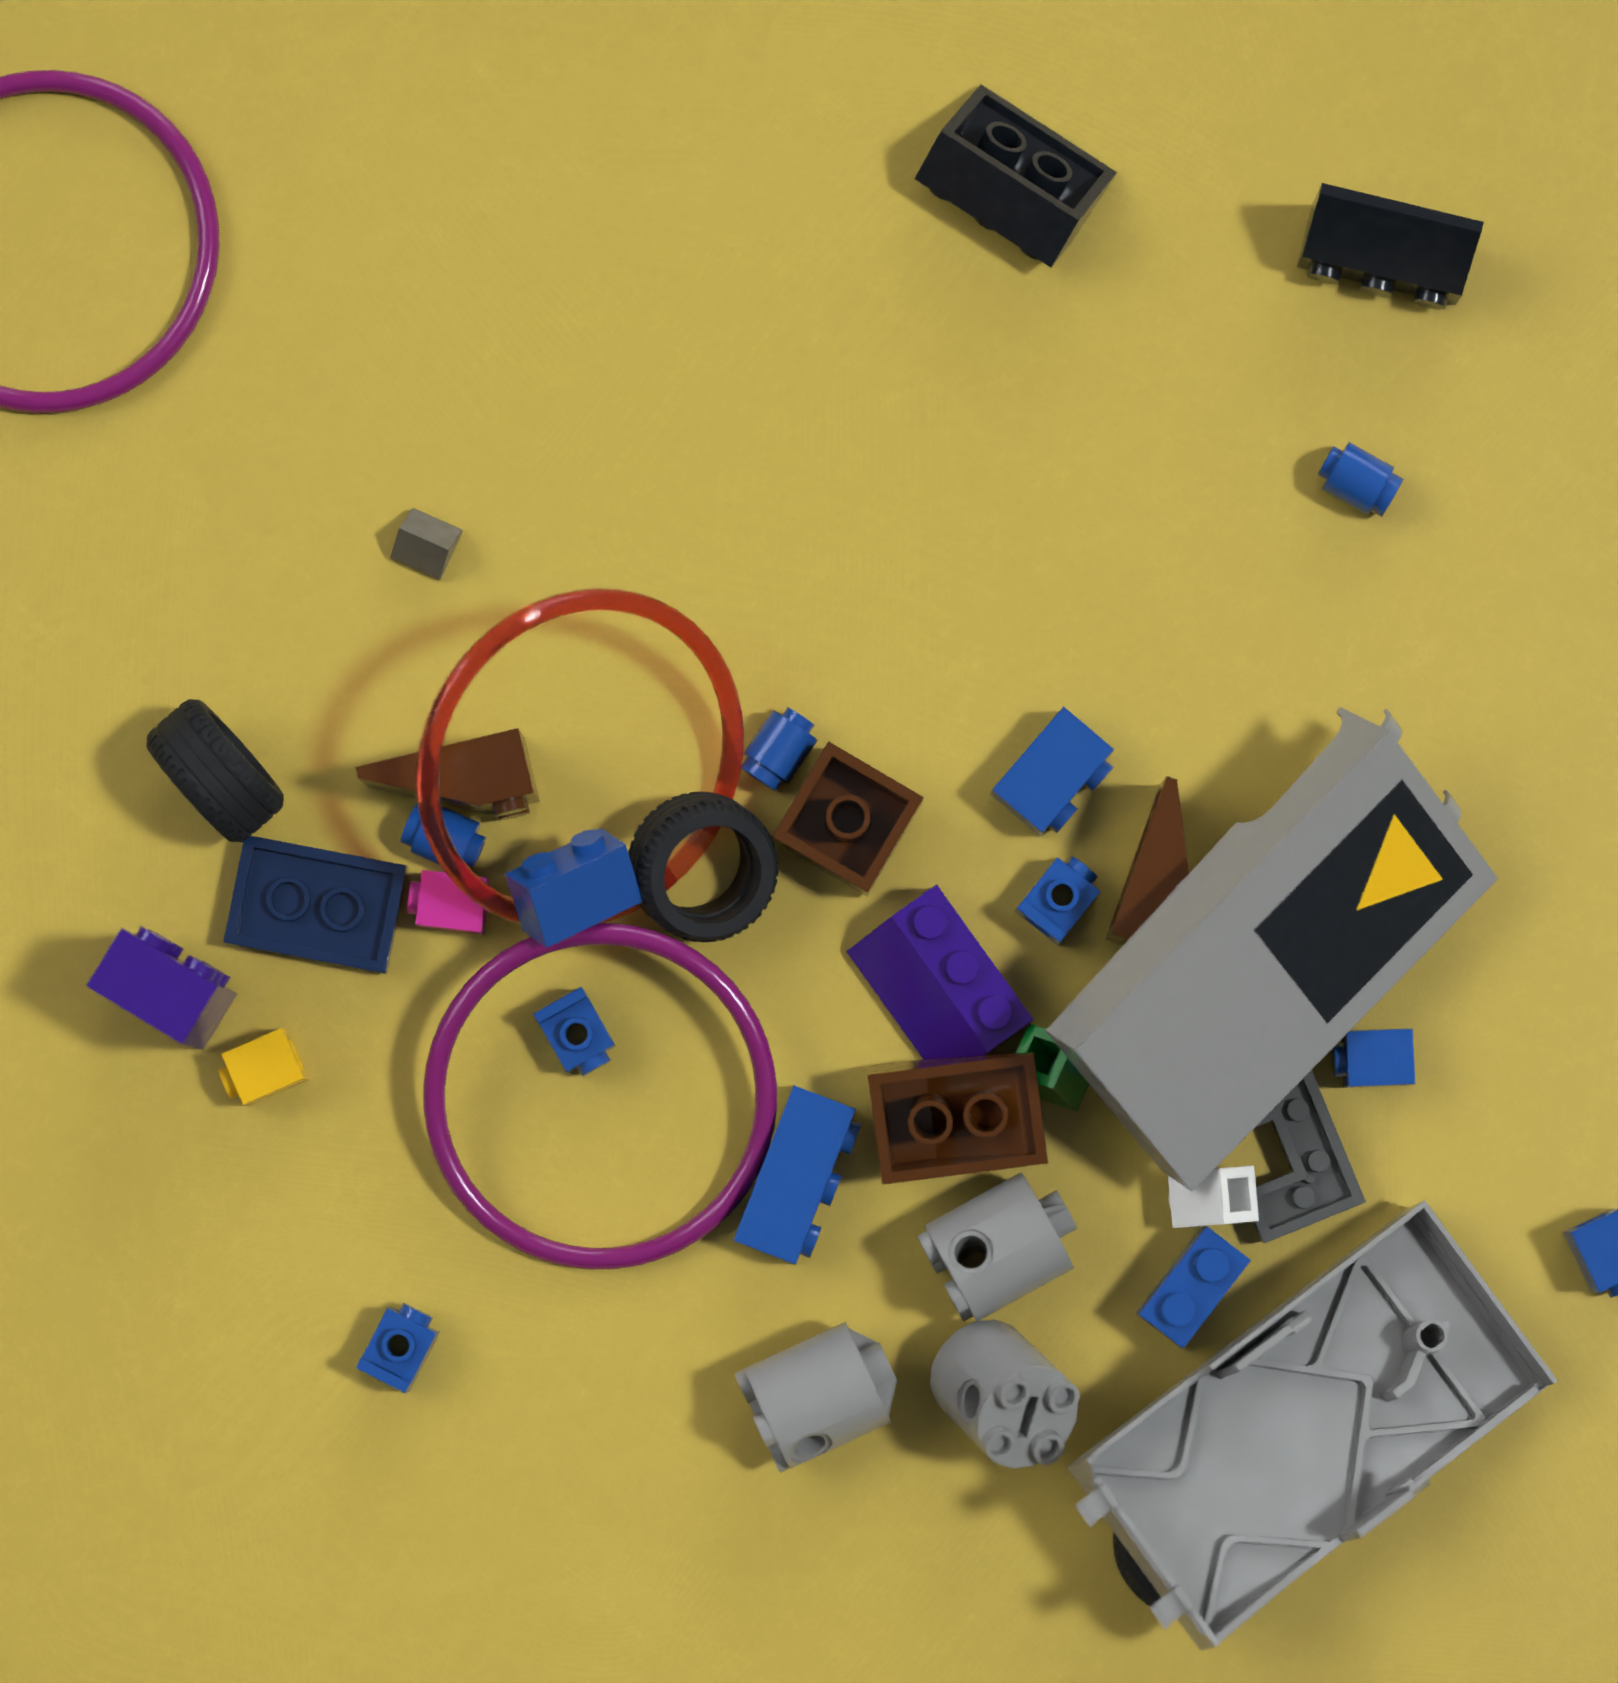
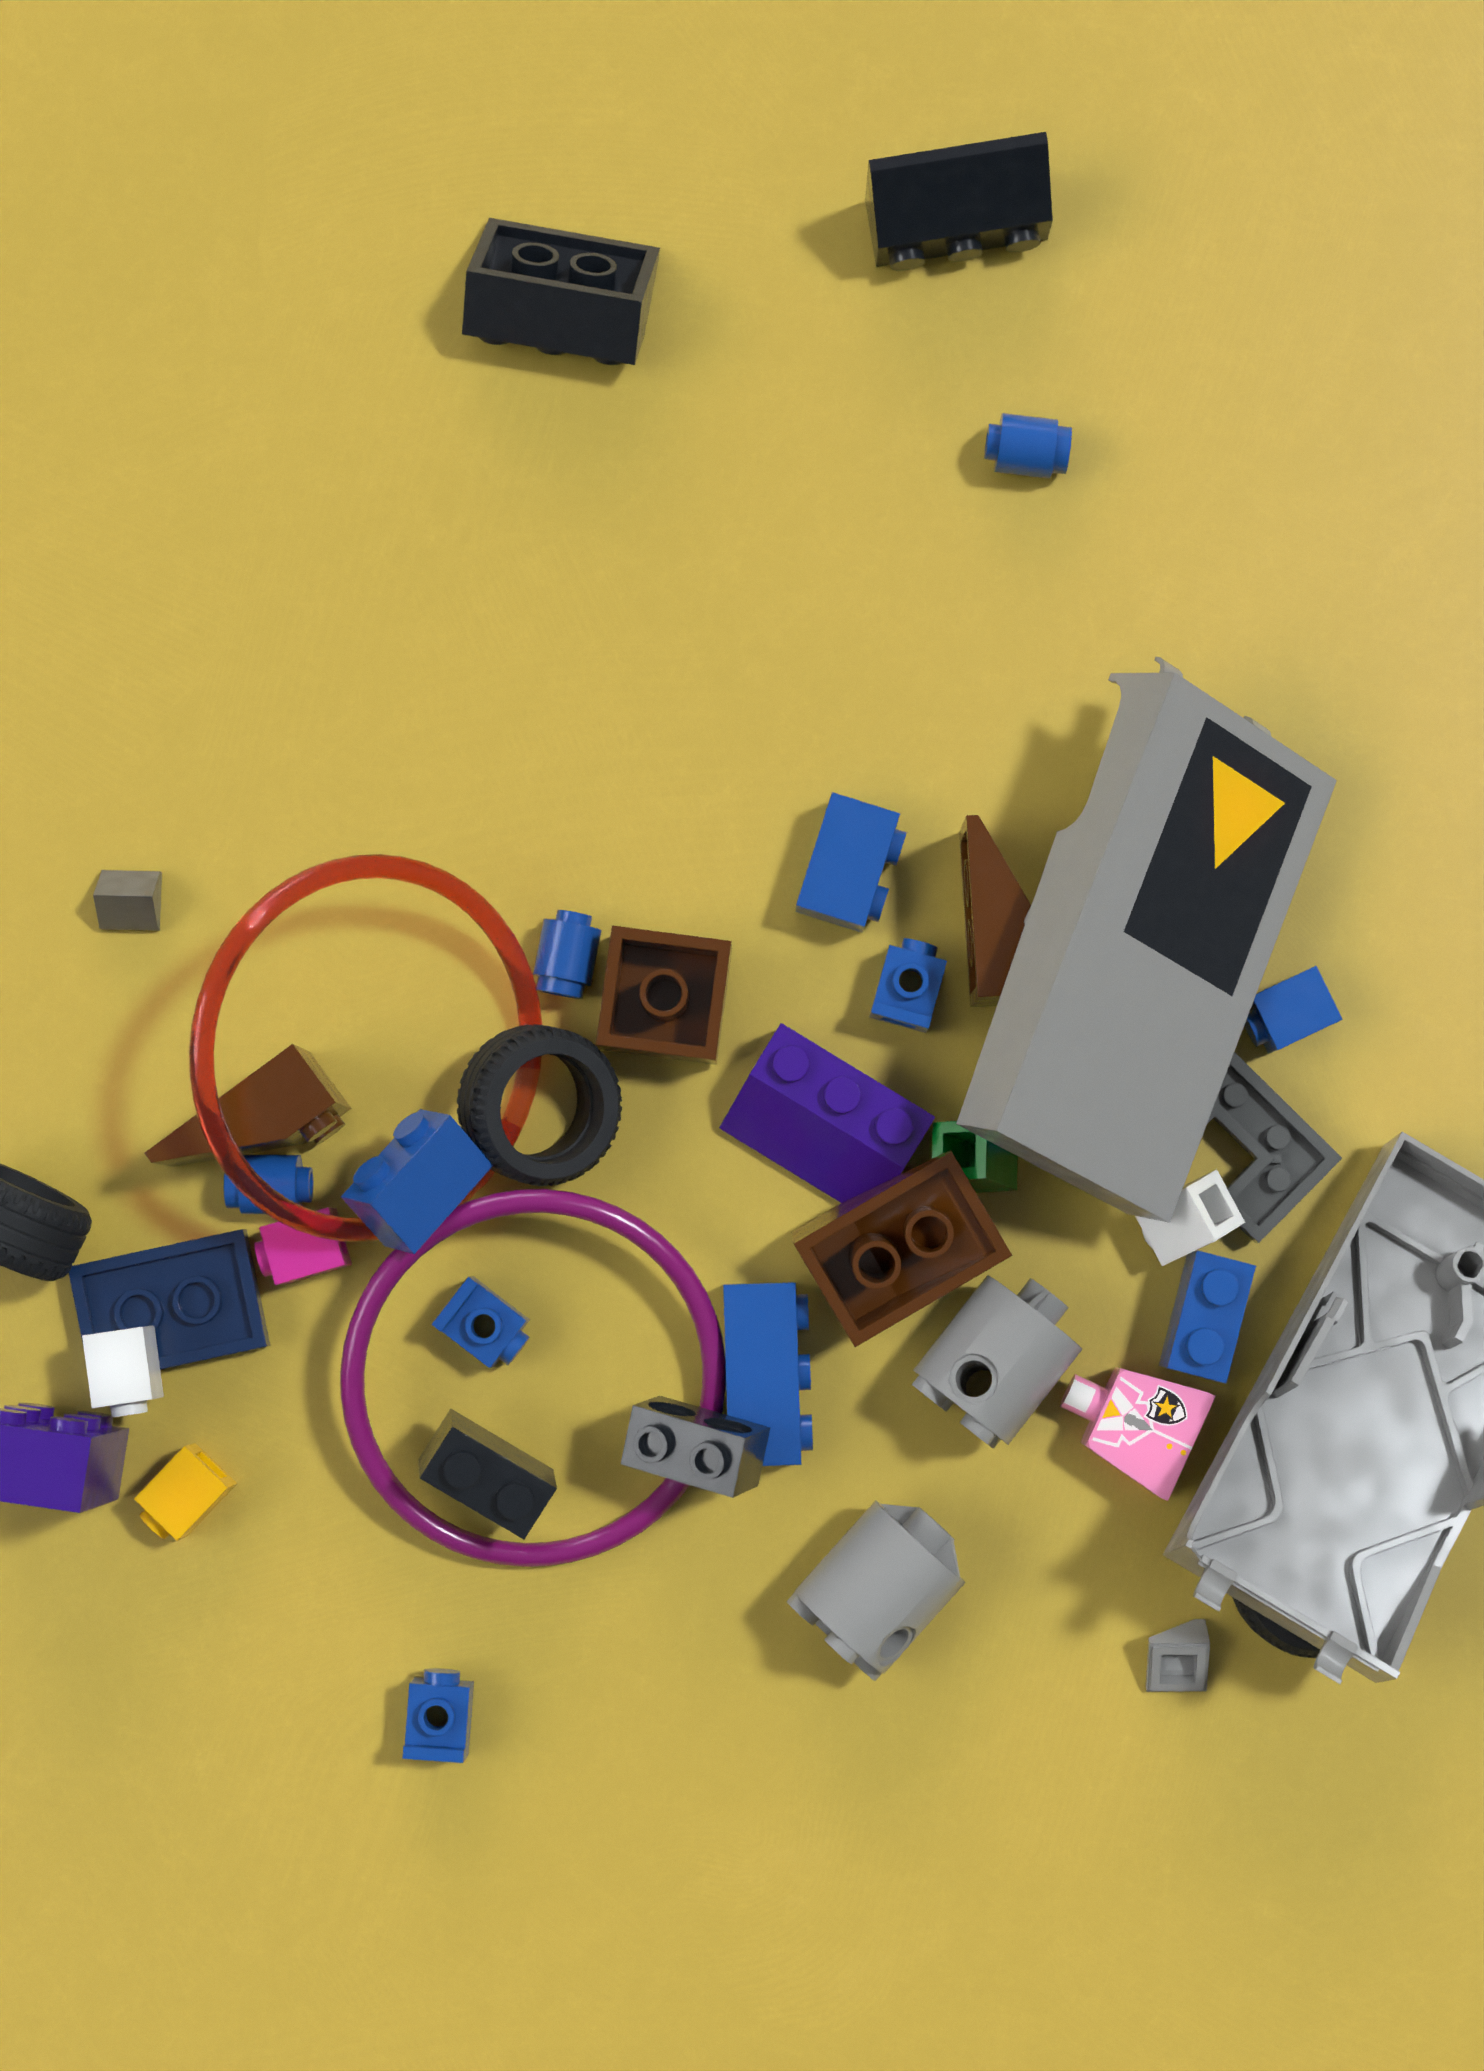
camera: 20 degrees left, 0 degrees up
(258, 941) = (123, 1369): none -> white brick
(528, 1158) = (487, 1474): none -> black brick
(713, 1209) = (695, 1446): none -> brick
(1004, 1394) = (1068, 1507): light grey cylinder -> none
(1045, 1567) = (1179, 1658): none -> light grey slope
(1098, 1353) = (1140, 1424): none -> bright pink torso

